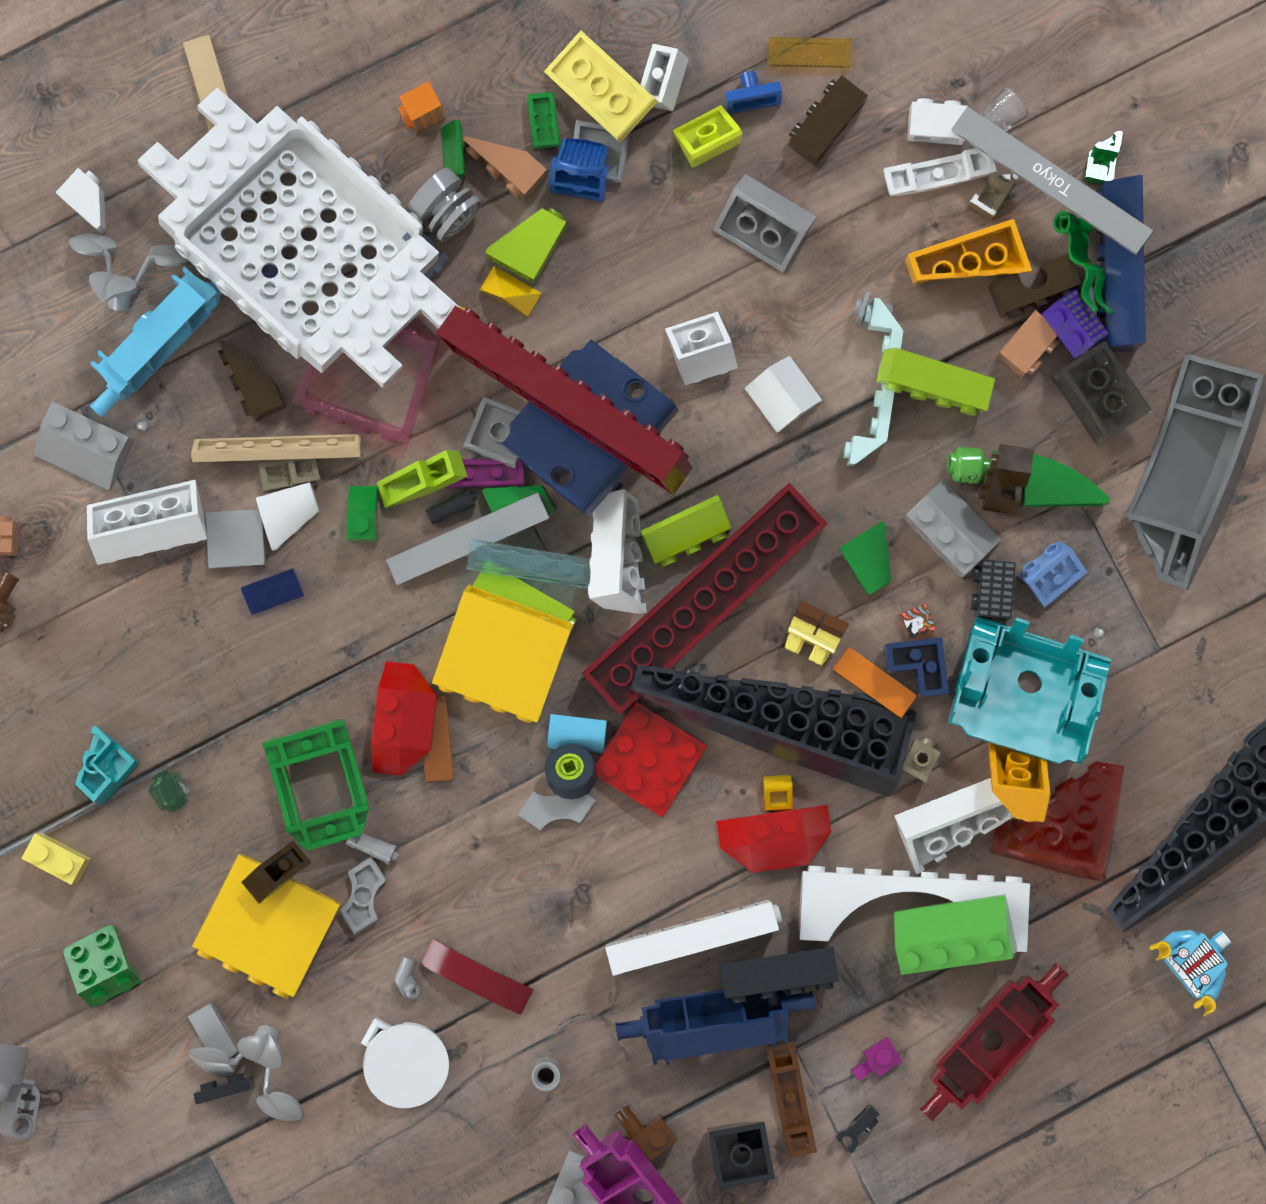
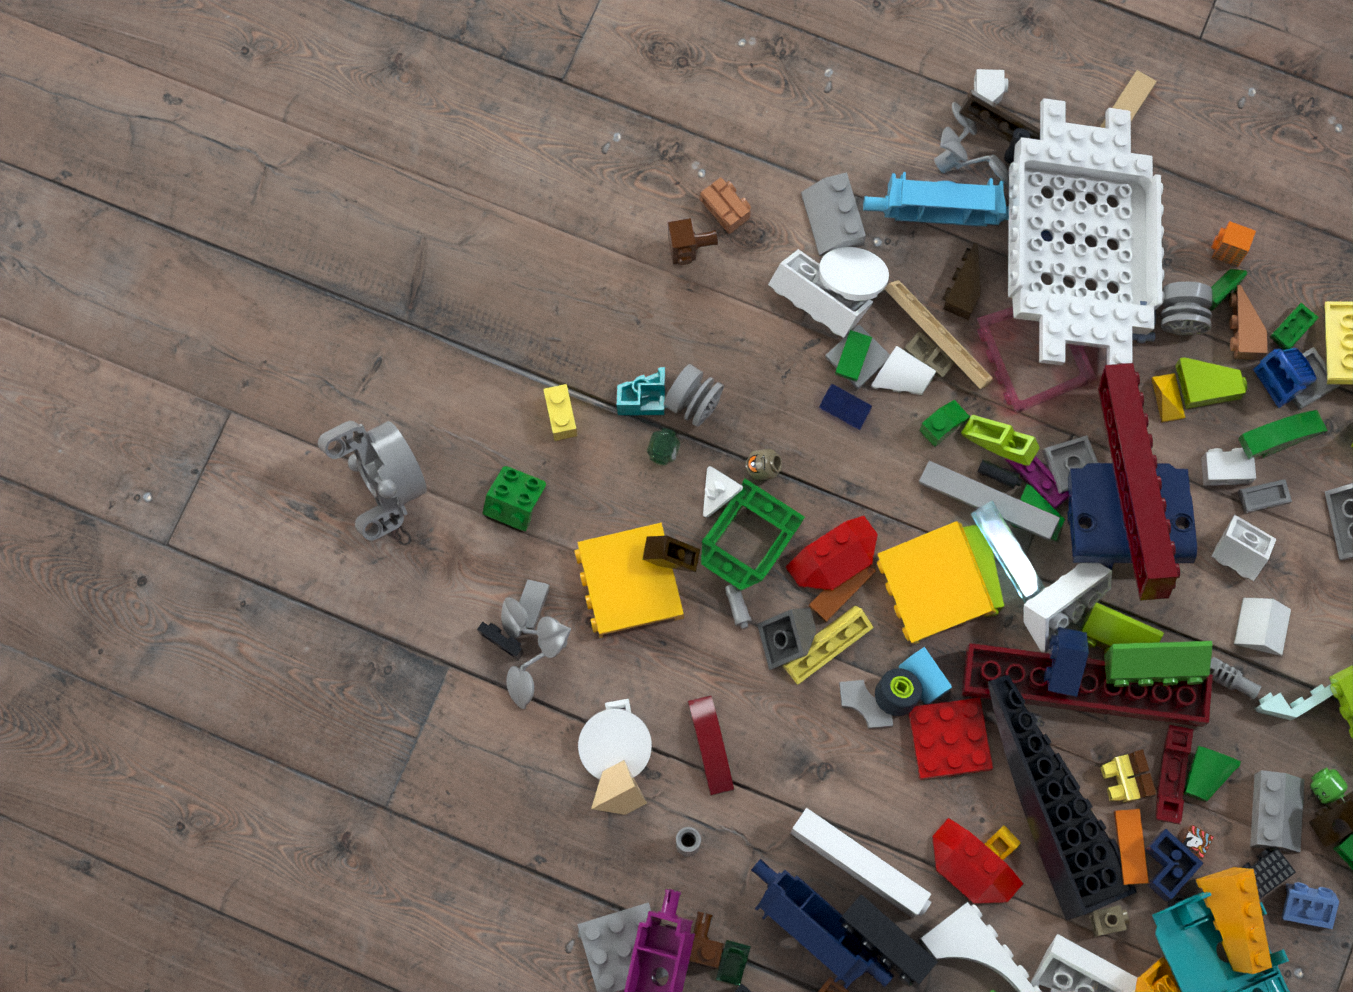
camera: 50 degrees right, 10 degrees down
(121, 215) = (995, 117): none -> dark brown slope
(140, 725) = (691, 393): none -> light grey wheel
(152, 212) = (1009, 153): none -> black piece
(154, 478) = (853, 273): none -> white tile
(231, 544) = (853, 356): none -> green tile
(252, 774) = (718, 490): none -> white piece
(263, 713) = (763, 464): none -> dark tan head
(360, 908) = (691, 631): light grey tile -> none
(404, 979) = (669, 698): light grey arm -> none
(438, 826) = (787, 636): none -> dark grey slope
(448, 1096) = (618, 791): none -> tan slope
(474, 796) = (830, 643): none -> light yellow slope
(619, 296) = (1227, 467): none -> white brick
(631, 222) = (1282, 434): none -> green slope
(669, 600) = (1069, 658): none -> dark blue brick
(671, 286) = (1264, 496): none -> light grey tile
(683, 1119) = (733, 962): none -> clear green slope
(740, 525) = (1158, 663): none -> bright green slope
(800, 466) = (1232, 678): none -> light grey hinge
(845, 591) = (1172, 774): none -> dark red slope
(1011, 649) = (1238, 918): none -> light orange wedge

